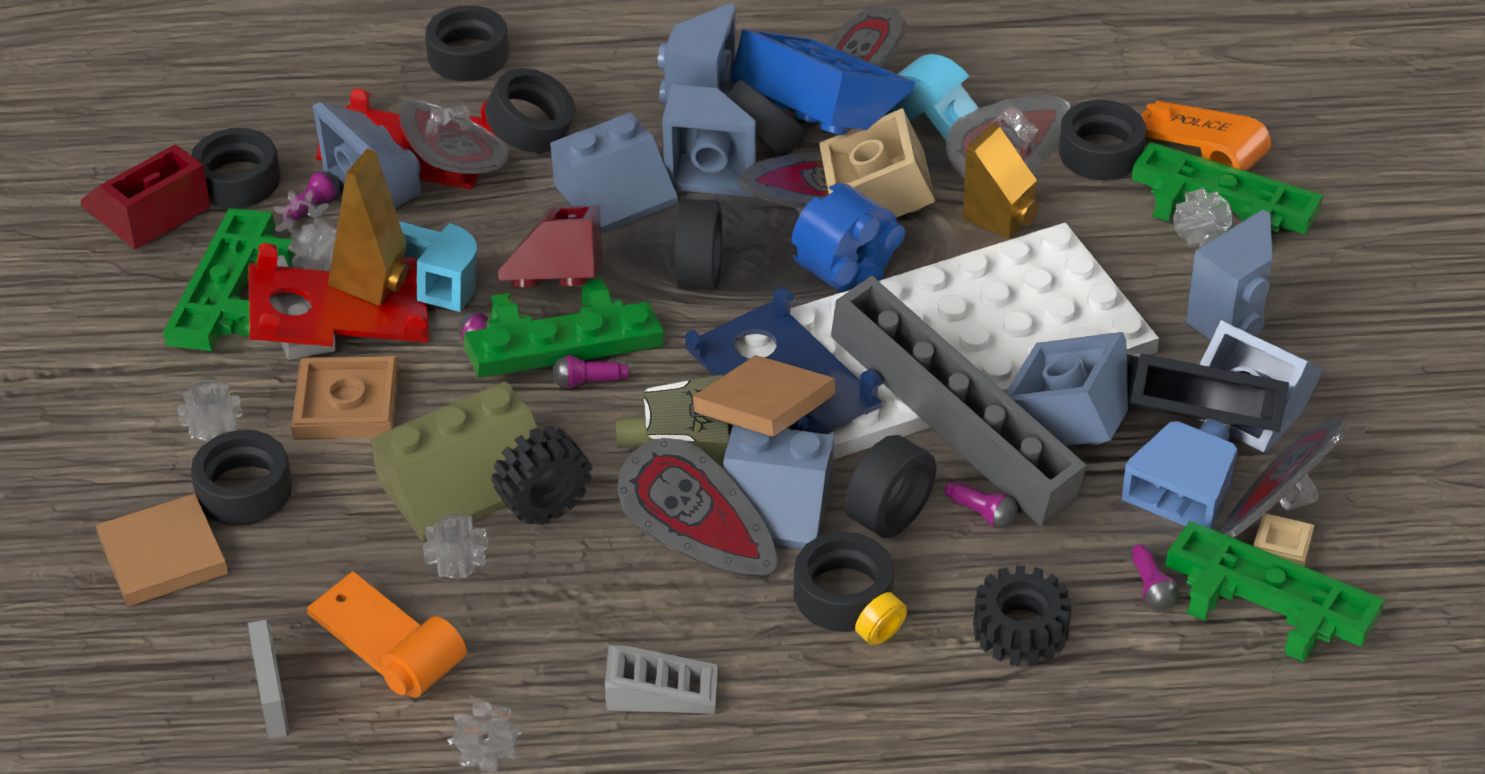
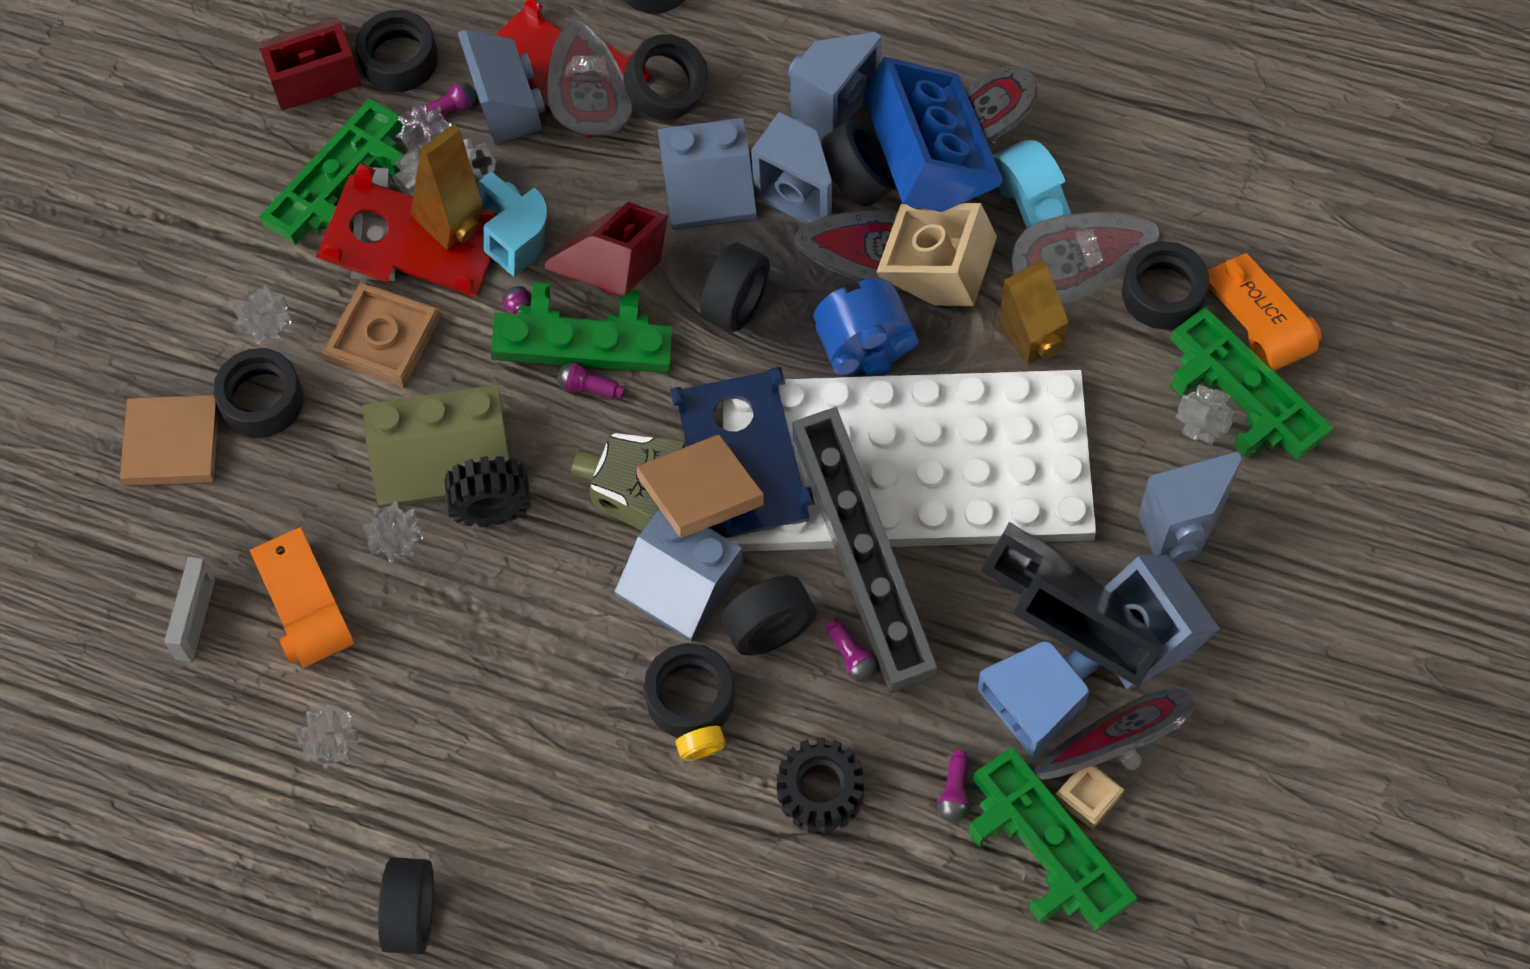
camera: 25 degrees right, 20 degrees up
(632, 666) = (468, 738): light grey slope -> none
(694, 508) = (597, 572): shield -> none
(1075, 387) = (971, 575): sand blue slope -> none

